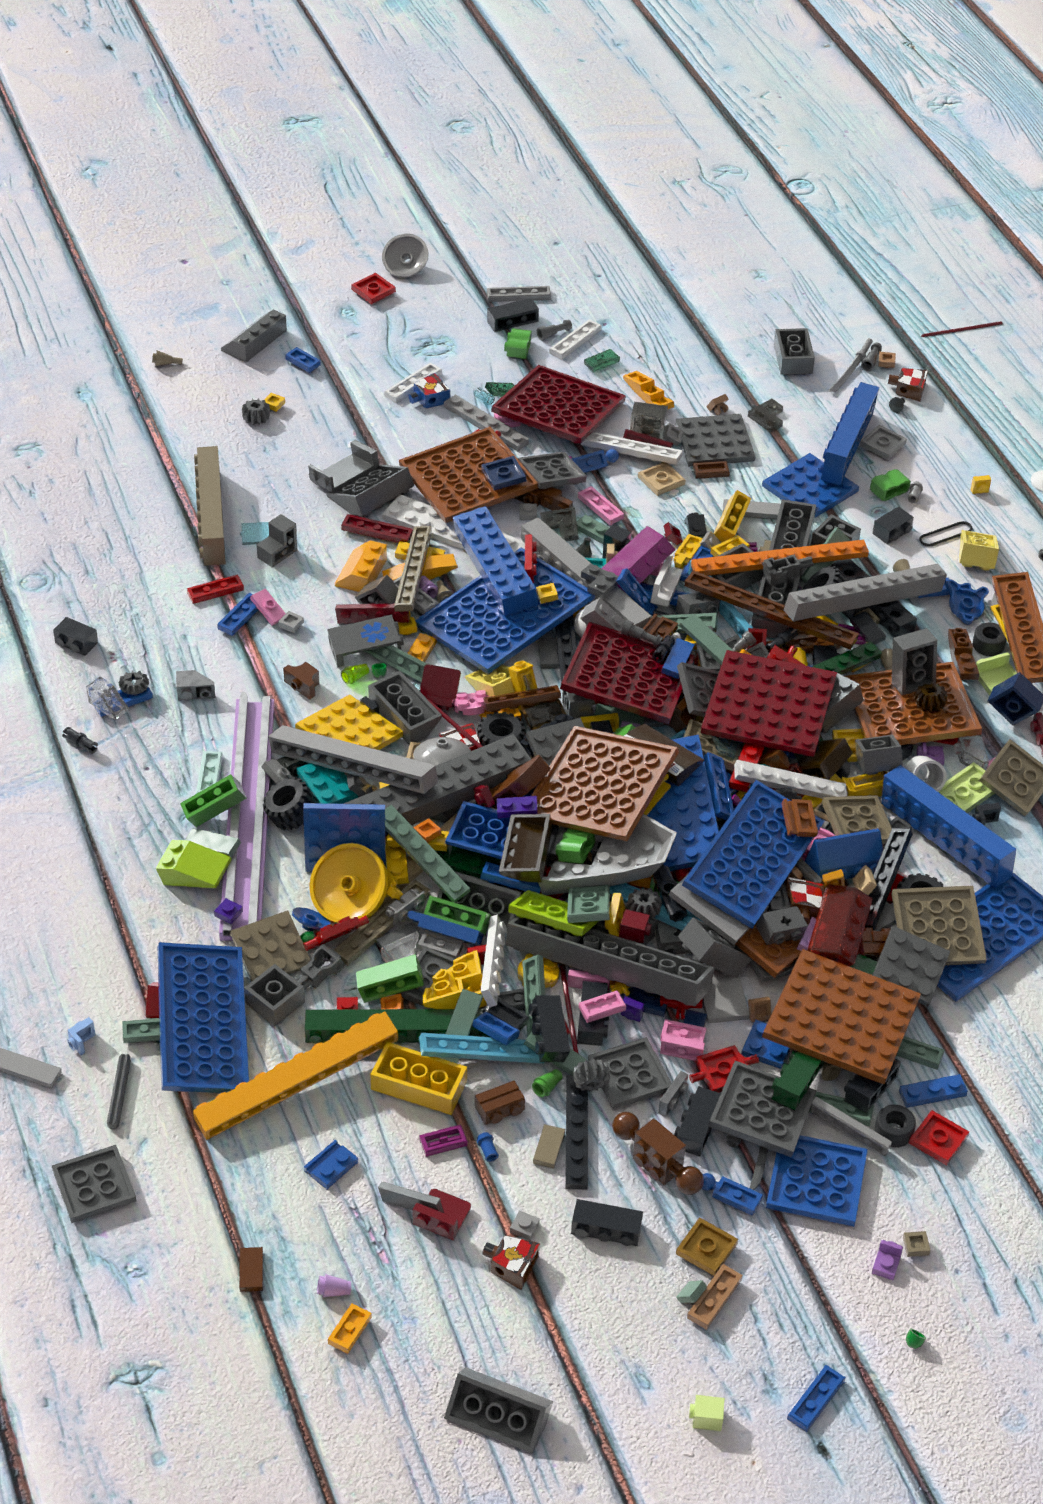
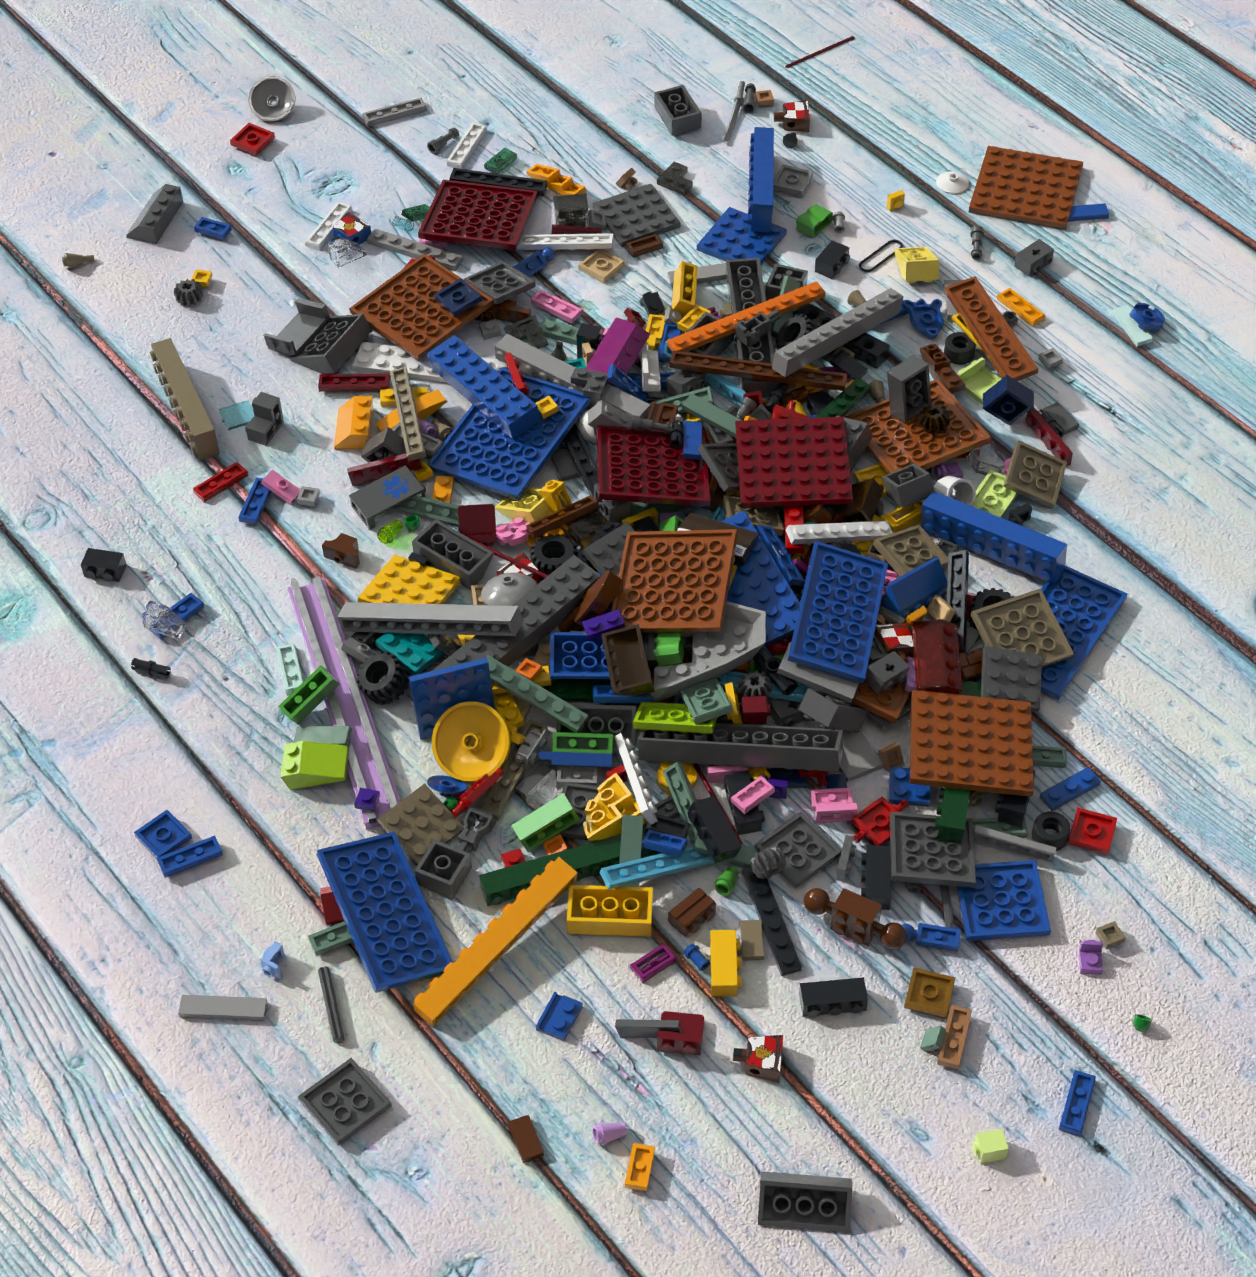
camera: 15 degrees left, 5 degrees up
(27, 893) = (163, 834): none -> blue plate
(44, 919) = (189, 856): none -> blue plate
(127, 686) = (177, 602): dark grey gear -> none
(193, 685) = (240, 584): flat silver slope -> none
(418, 408) = (344, 251): none -> clear slope
(483, 796) = (568, 622): dark red plate -> none
(512, 315) = (398, 135): black brick -> none
(512, 1159) = (724, 963): none -> yellow brick
(518, 343) = (415, 162): bright green brick -> none
(524, 1225) = (759, 1021): light grey plate -> none
(593, 377) = (486, 178): none -> black plate
(728, 747) = (770, 514): clear light blue piece -> none
(799, 818) = (867, 566): dark orange plate -> none

